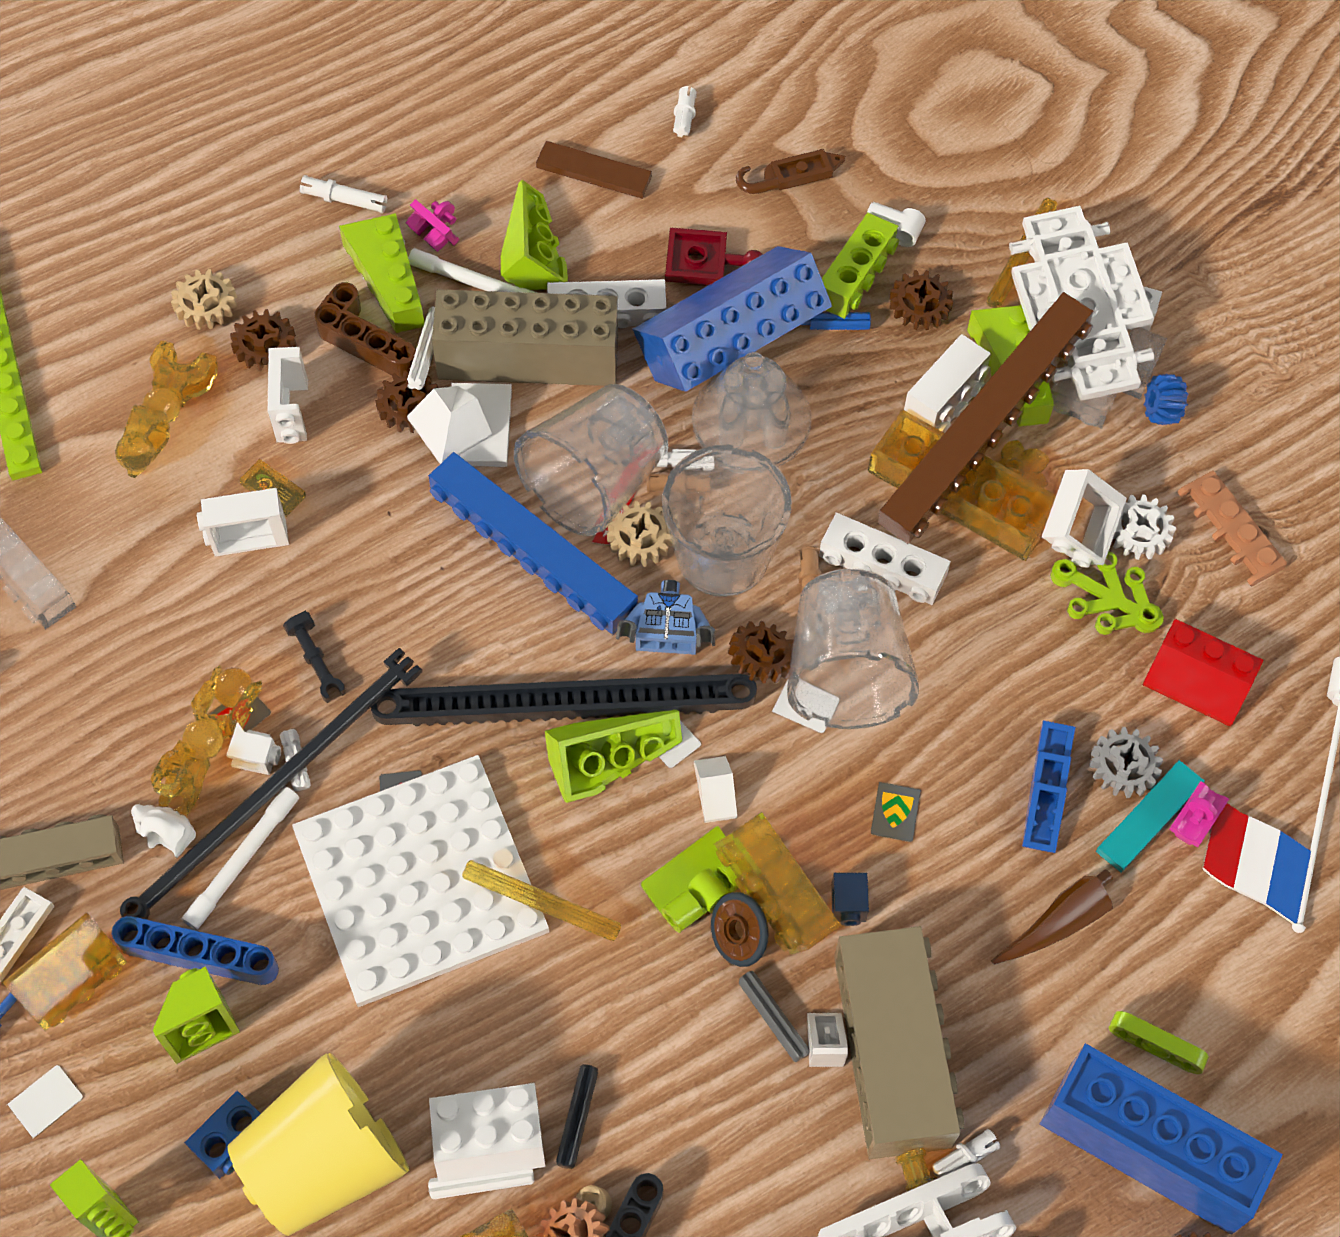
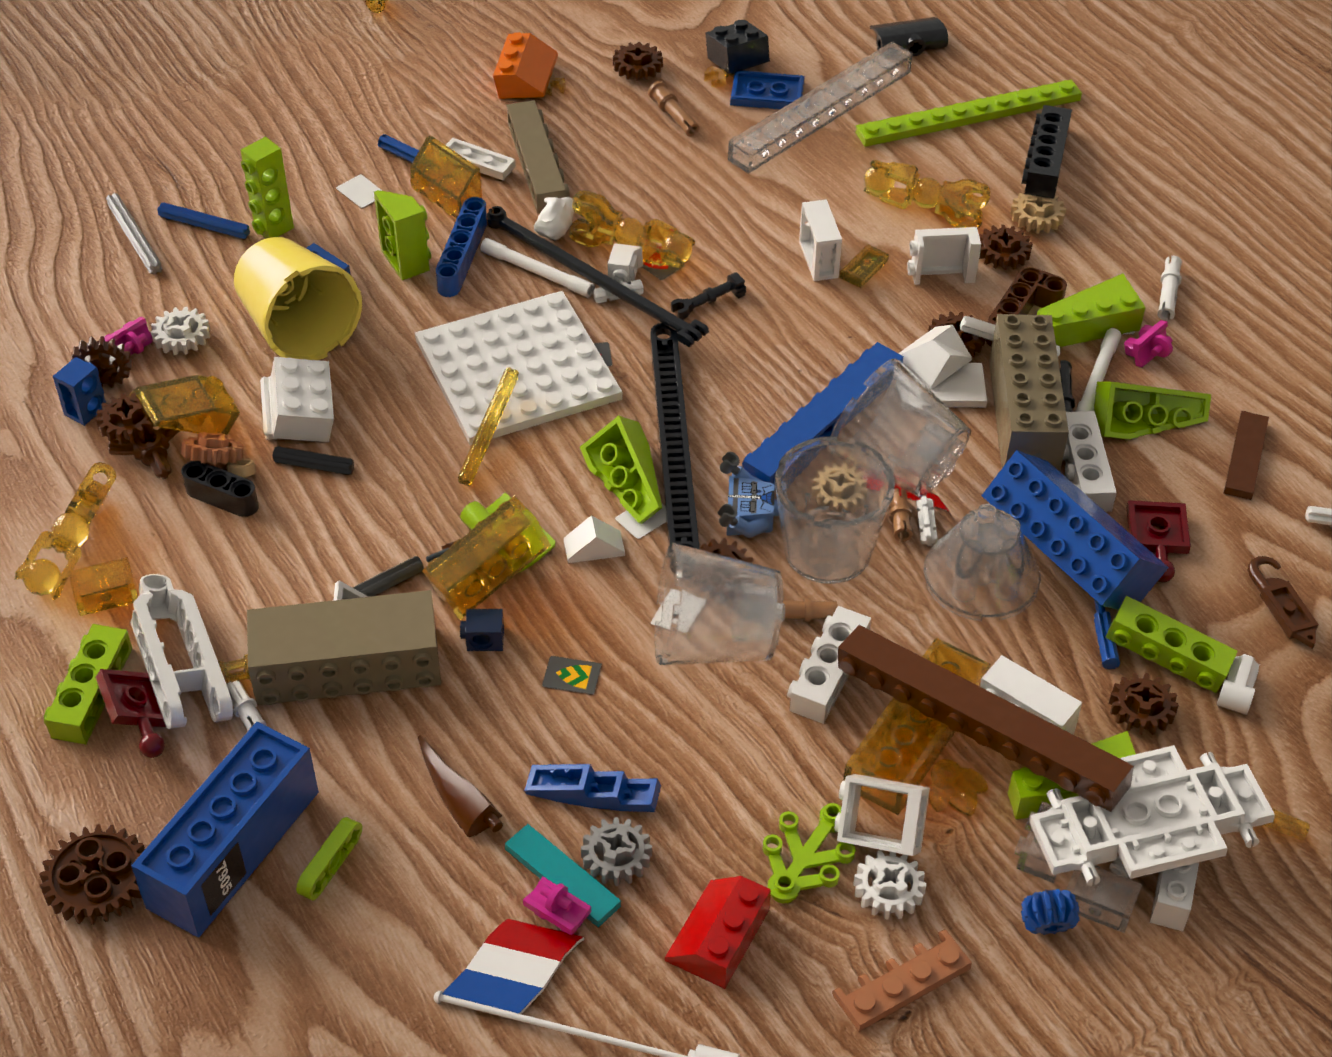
camera: 90 degrees right, 15 degrees down
(110, 270) = (1046, 151): none -> black brick

